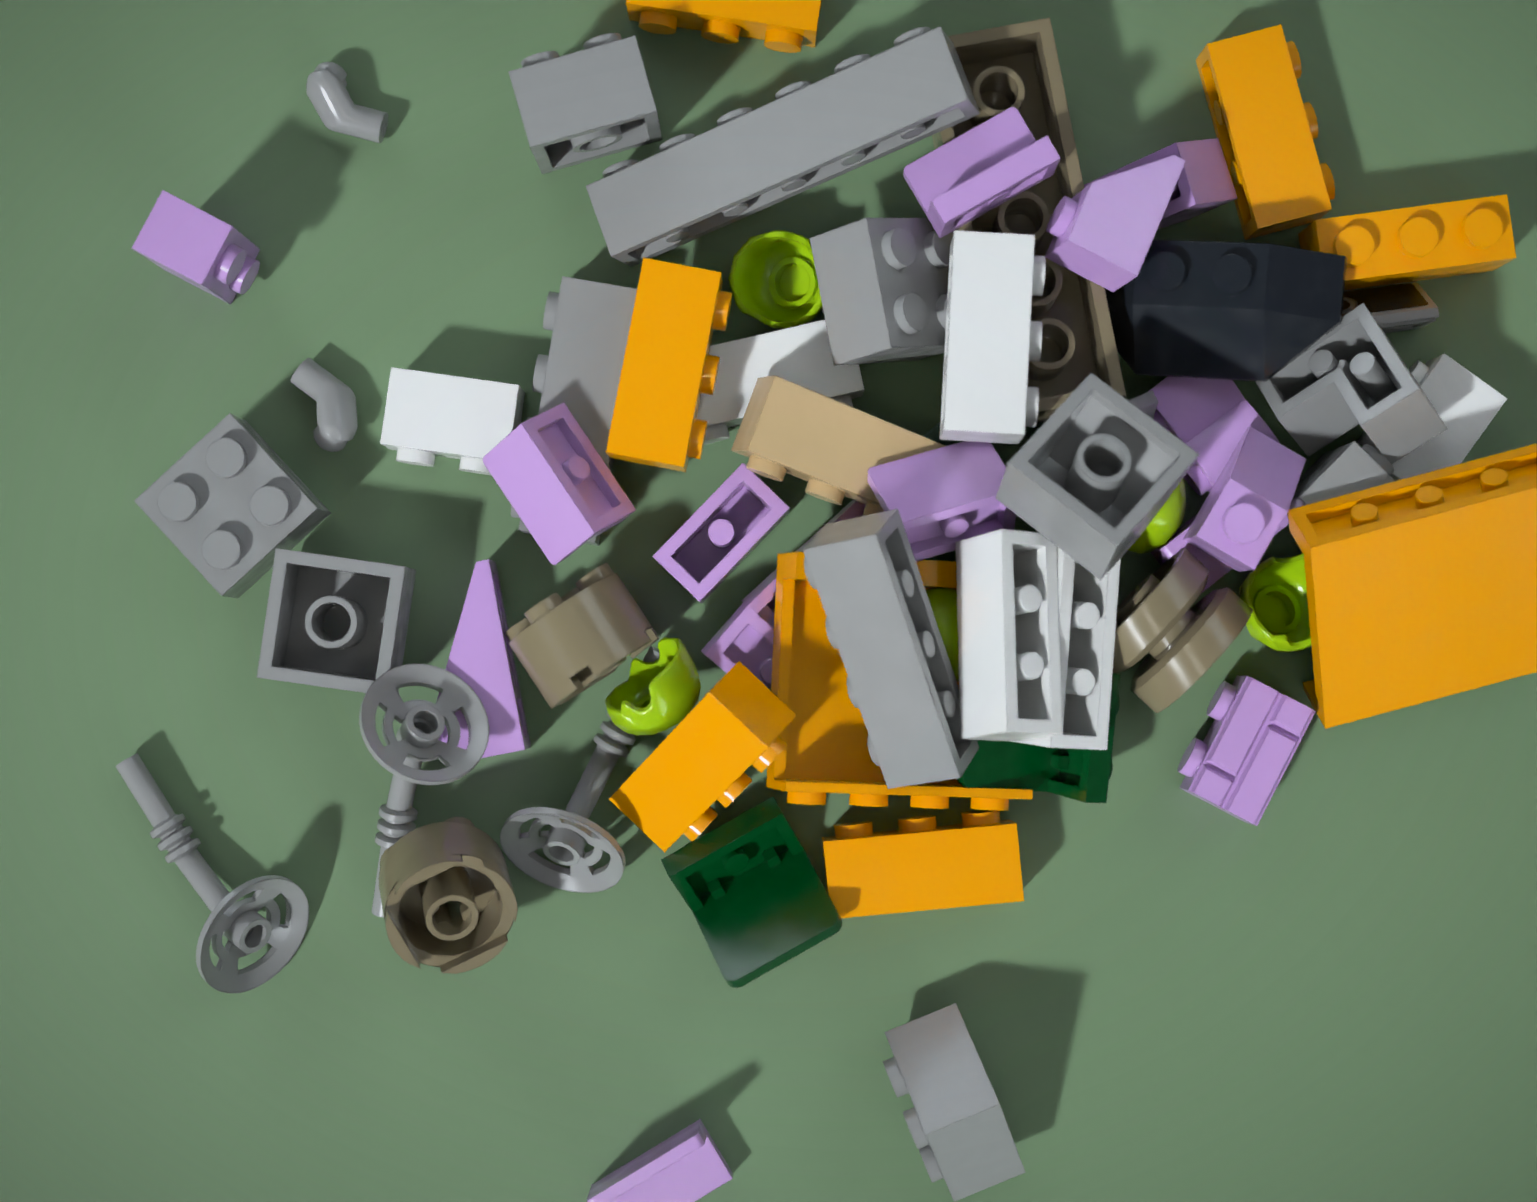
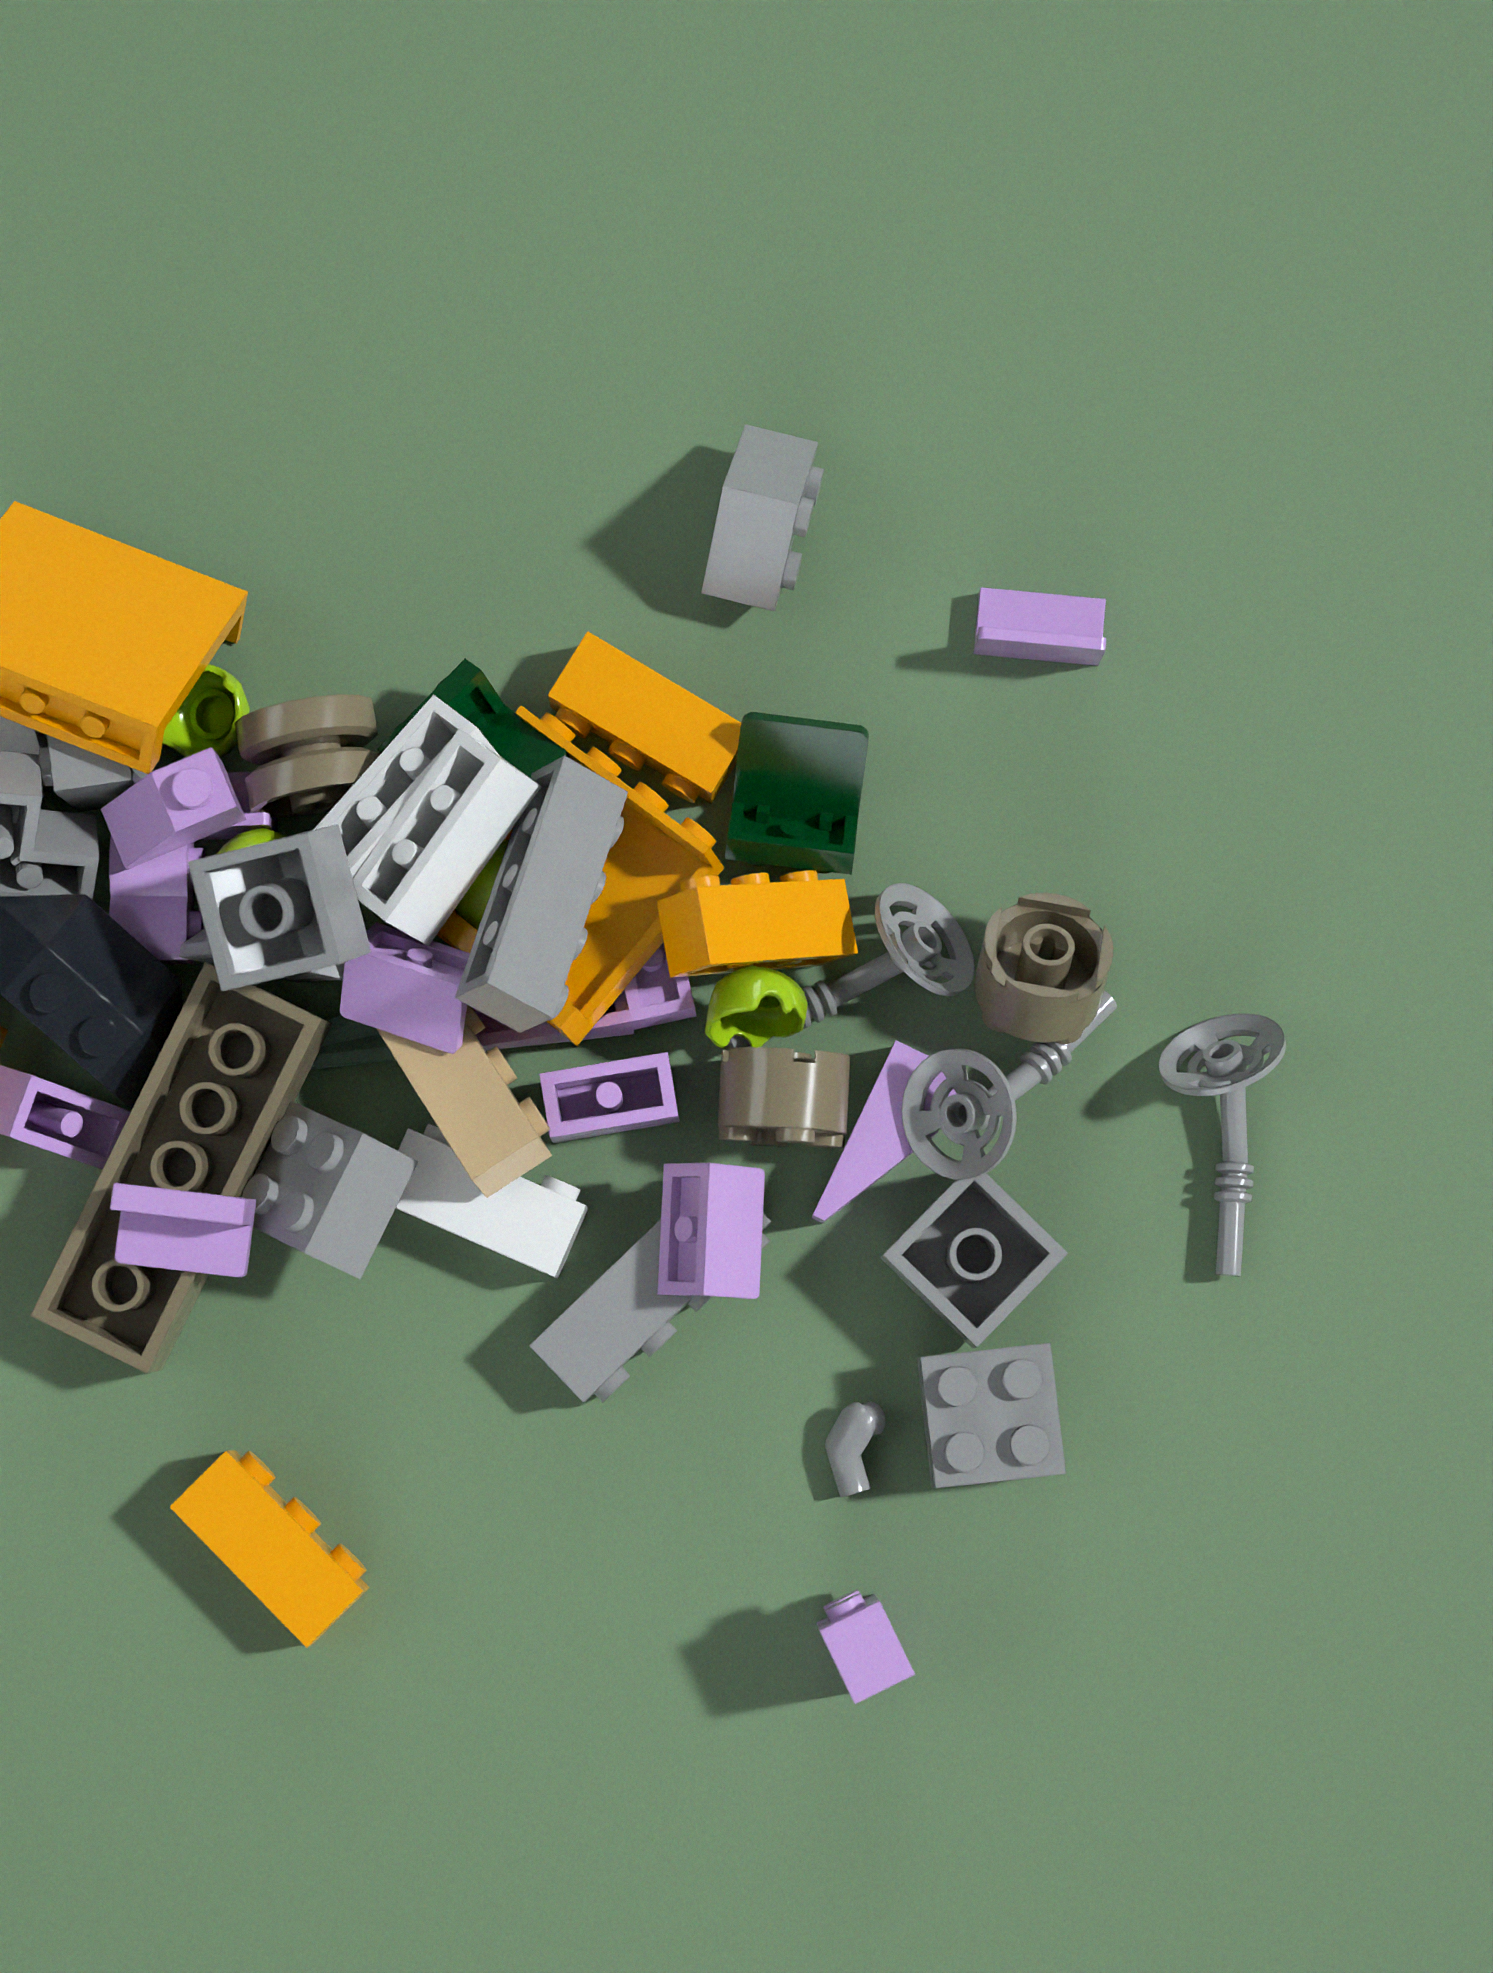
camera: 140 degrees left, 5 degrees down
(336, 109) = (665, 1690): light grey arm -> none
(448, 417) = (761, 1356): white brick -> none
(585, 102) = (455, 1530): light grey brick -> none
(668, 365) = (551, 1258): light orange brick -> none
(776, 279) = (410, 1271): lime hair -> none
(783, 146) = (325, 1371): light grey brick -> none
(990, 337) = (278, 1084): white brick -> none
(1113, 222) = (110, 1102): lavender slope -> none
(1245, 748) = (323, 624): lavender brick -> none

